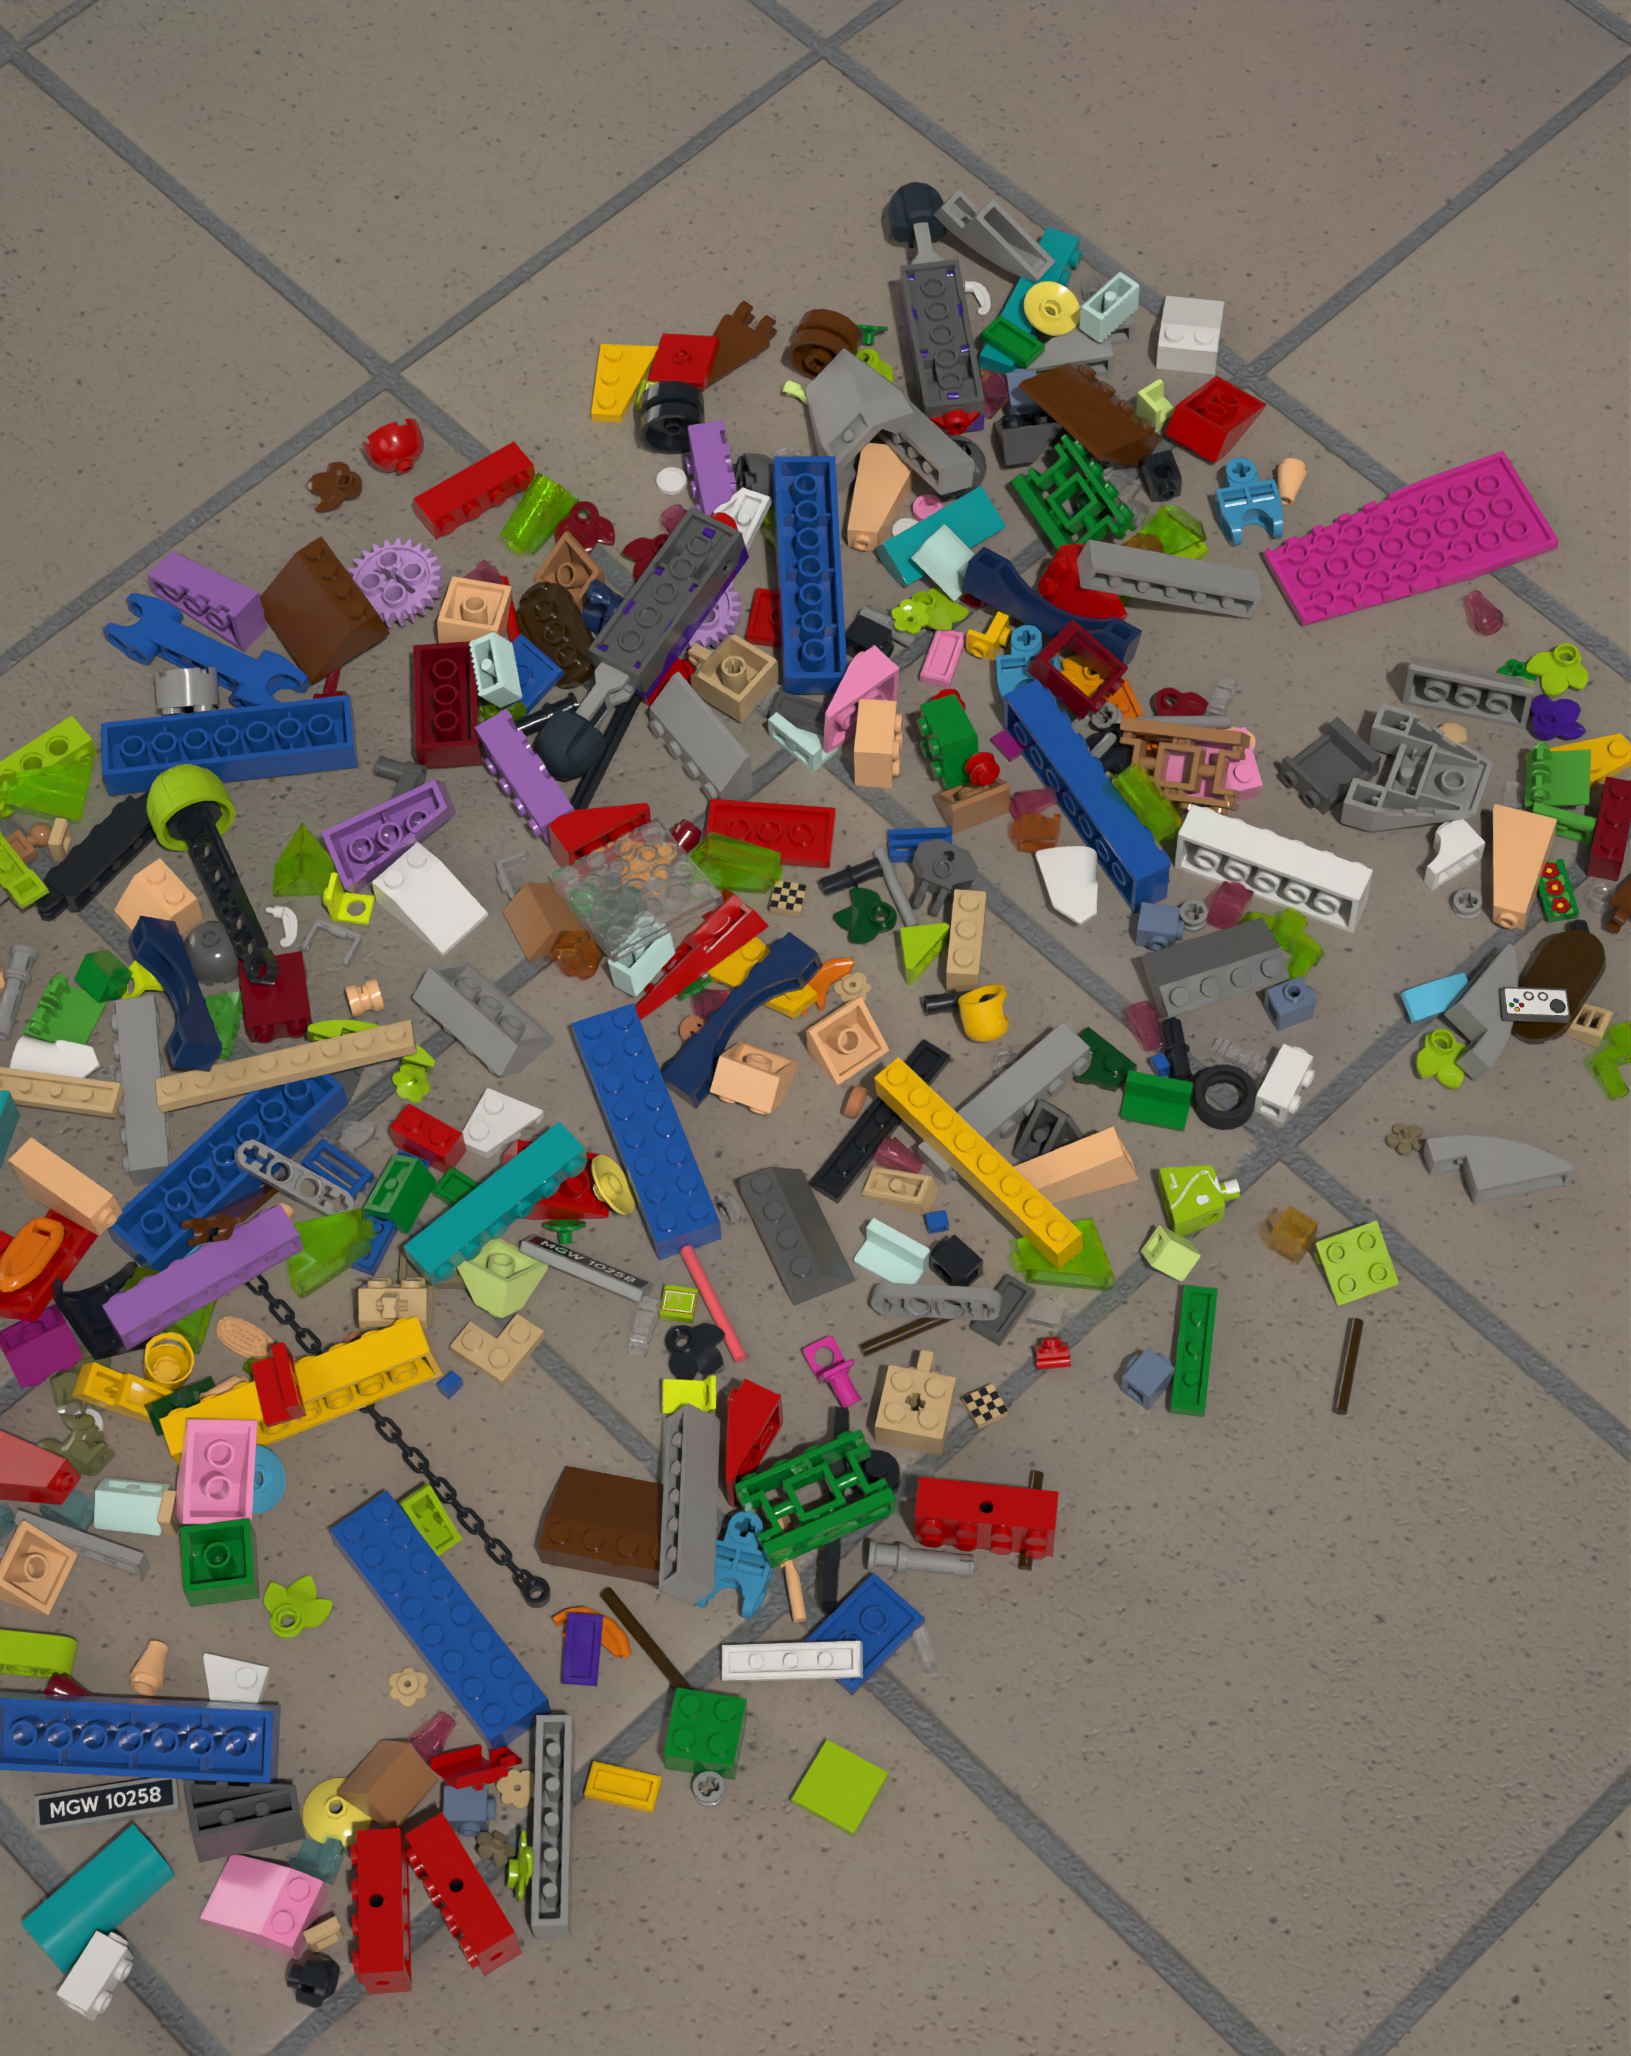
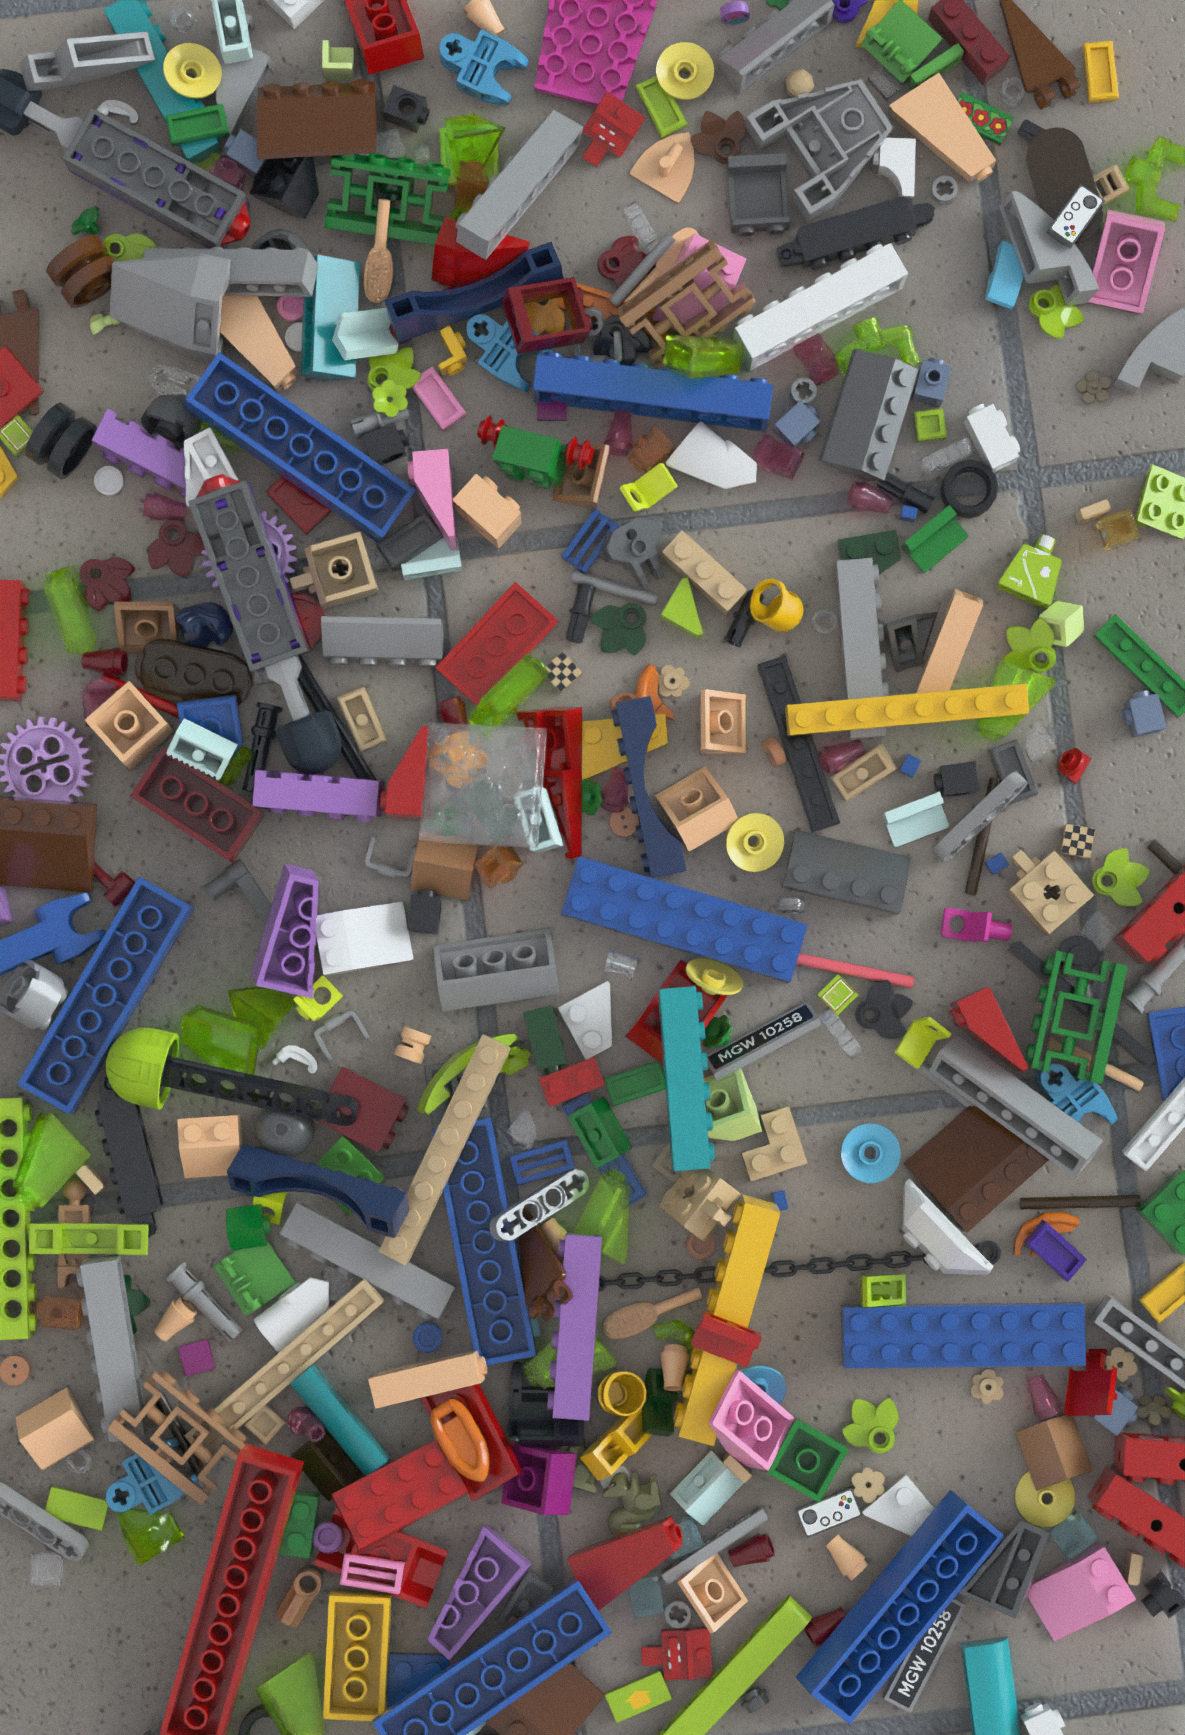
camera: 55 degrees left, 25 degrees up
(100, 1583) = (752, 1551): none -> dark red cone
(112, 1182) = (427, 1337): none -> blue tile
(183, 1626) = (829, 1513): none -> tile
(235, 1634) = (869, 1493): none -> tan plant
(257, 851) = (221, 1039): none -> clear neon green slope
(452, 1089) = (545, 1039): none -> dark green brick
(489, 931) = (424, 912): none -> black brick
(516, 1529) = (937, 1237): none -> white wedge
(518, 571) = (106, 661): none -> dark red cone
(550, 1412) = (886, 1153): none -> medium azure dish
(566, 1108) = (621, 963): none -> clear bush
(623, 777) = (361, 717): none -> tan slope
(755, 1124) = (768, 845): none -> light yellow dish
(907, 1353) = (996, 863): none -> blue piece
(986, 1466) = (1124, 878): none -> lime plate
(1002, 856) = (649, 488): none -> neon yellow bracket
(1017, 537) = (379, 263): none -> light nougat piece
(1117, 928) = (778, 457): none -> clear pink bracket
(1129, 1239) = (1028, 643): none -> lime plate
(1253, 1032) = (929, 425): none -> lime tile
(1282, 625) = (611, 128): none -> red piece
(1288, 1199) = (1093, 512): none -> tan tile
(1292, 692) = (667, 166): none -> light nougat shield
(1337, 652) = (661, 108): none -> lime tile
(1351, 707) = (720, 133): none -> reddish brown plate
(1382, 635) = (689, 58): none -> light yellow dish
(1395, 874) = (854, 232): none -> black hinge
(1464, 649) = (734, 12): none -> medium lavender tile
(1538, 1080) = (1126, 260): none -> bright pink slope

